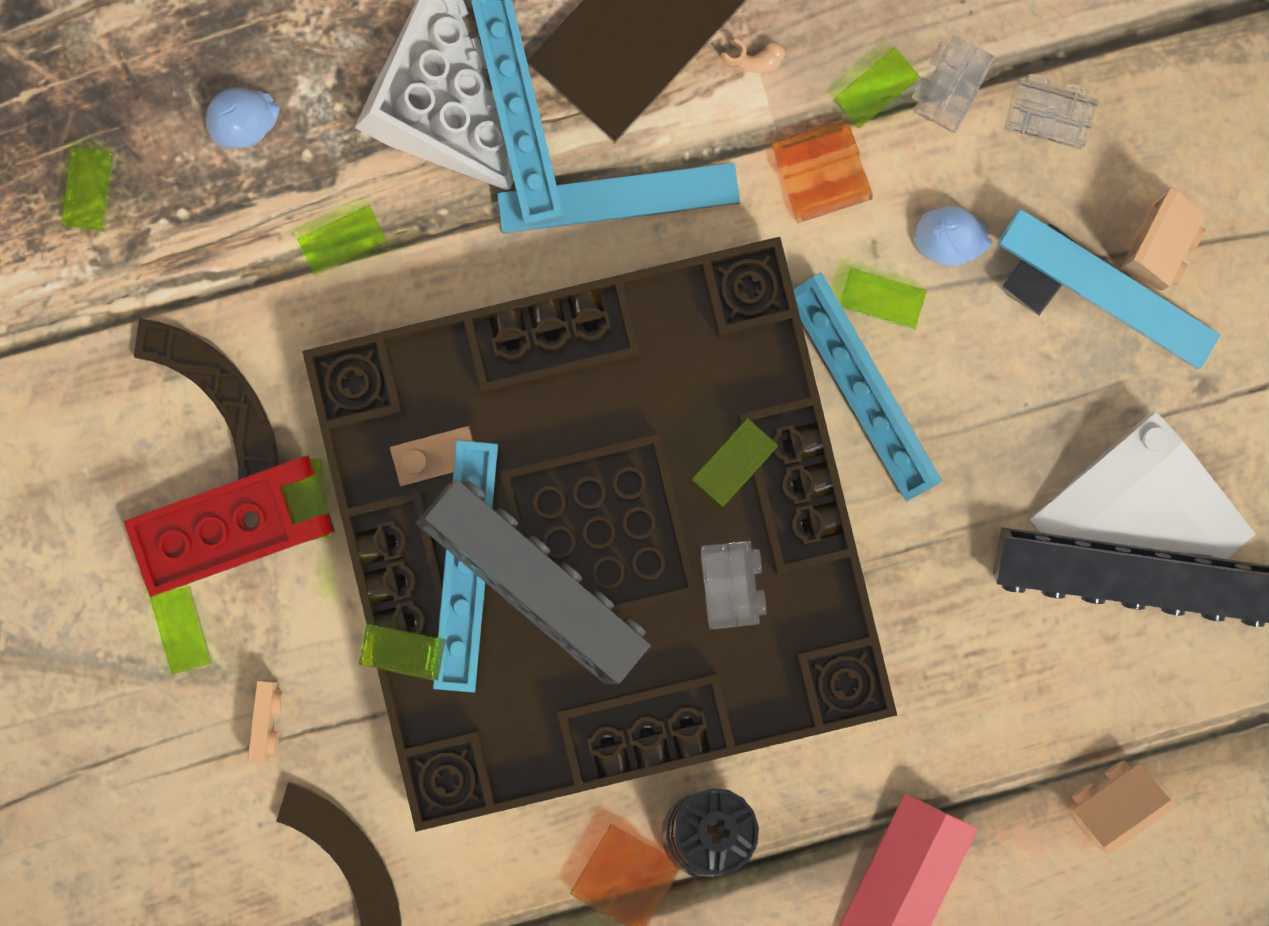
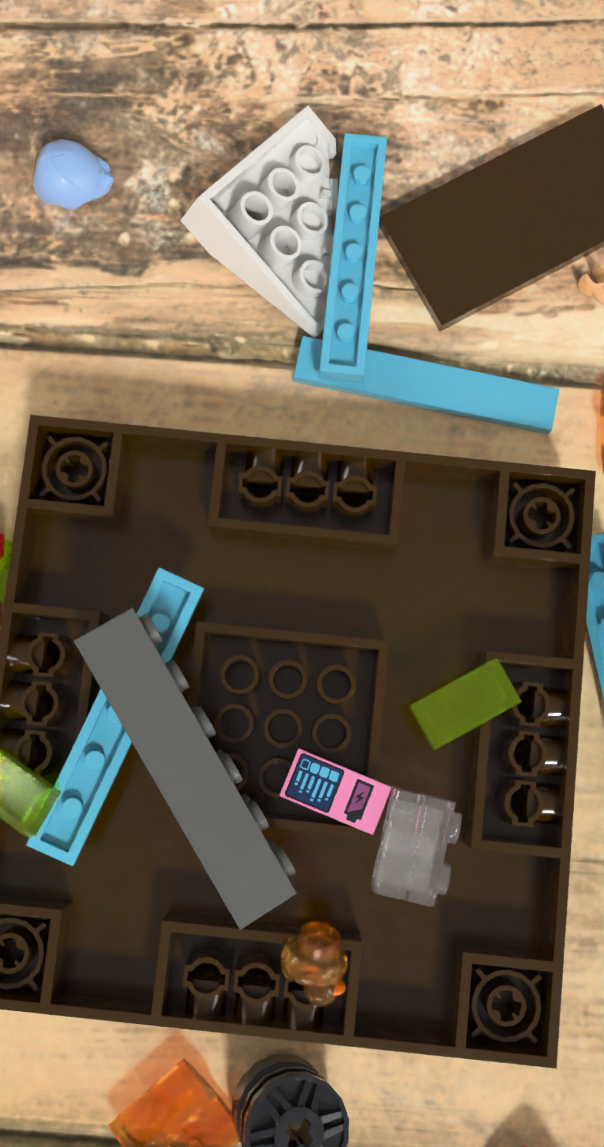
camera: 20 degrees right, 5 degrees down
(342, 240) = (127, 331): clear neon green tile -> none
(428, 456) = (124, 577): light nougat plate -> none
(656, 566) = (335, 791): none -> tile
(686, 697) = (316, 962): none -> clear orange animal

